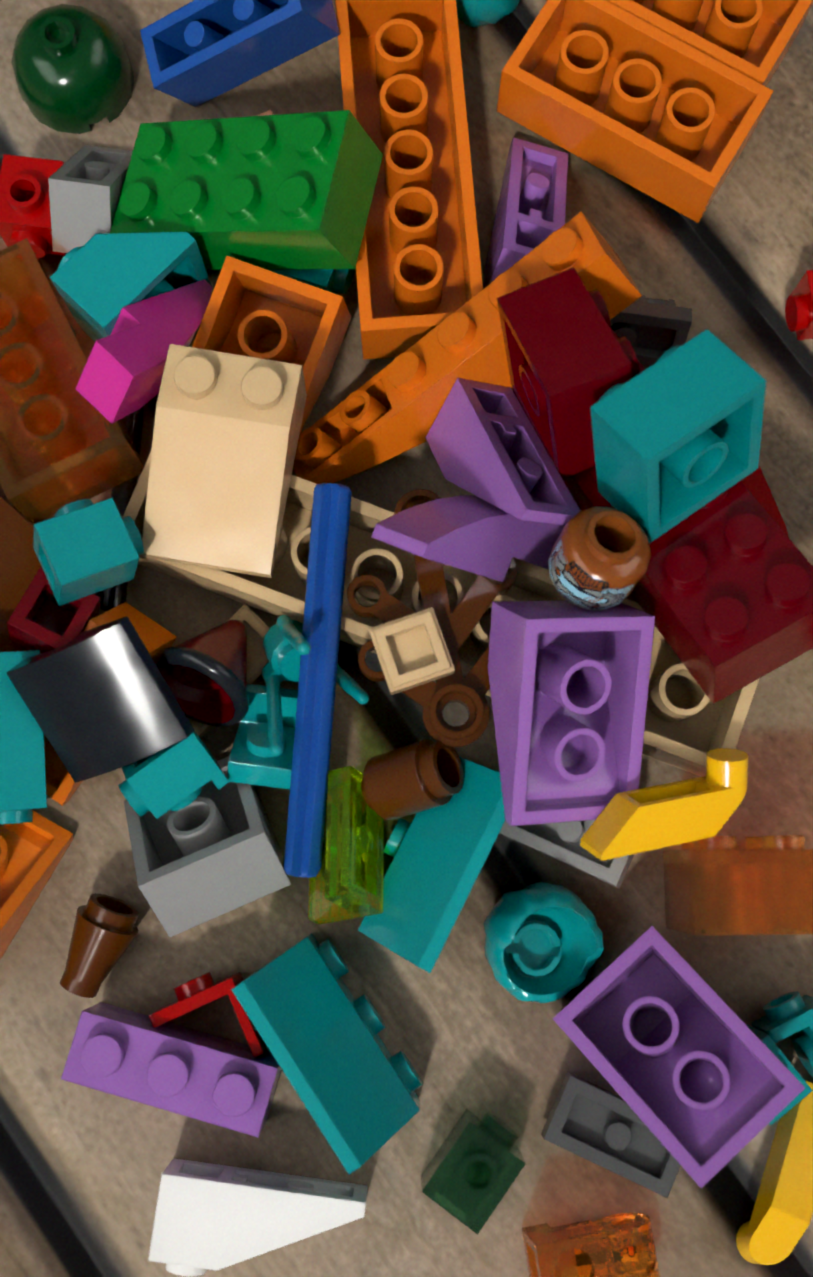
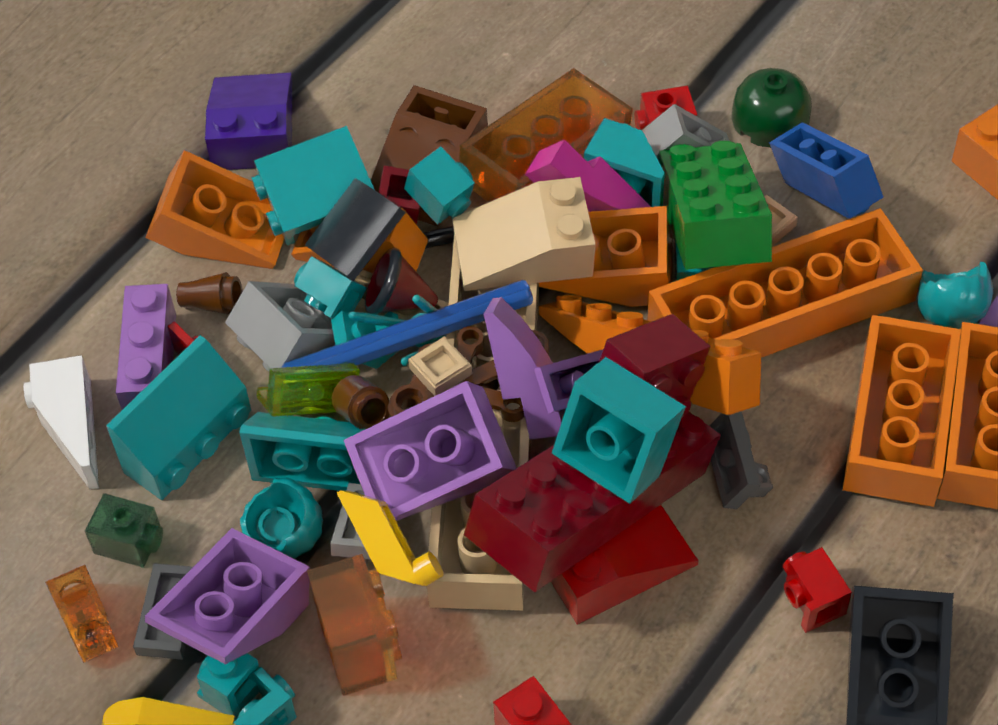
camera: 75 degrees right, 25 degrees down
(528, 204) = (802, 378): medium lavender slope -> none
(599, 558) = (528, 424): dark orange head -> none

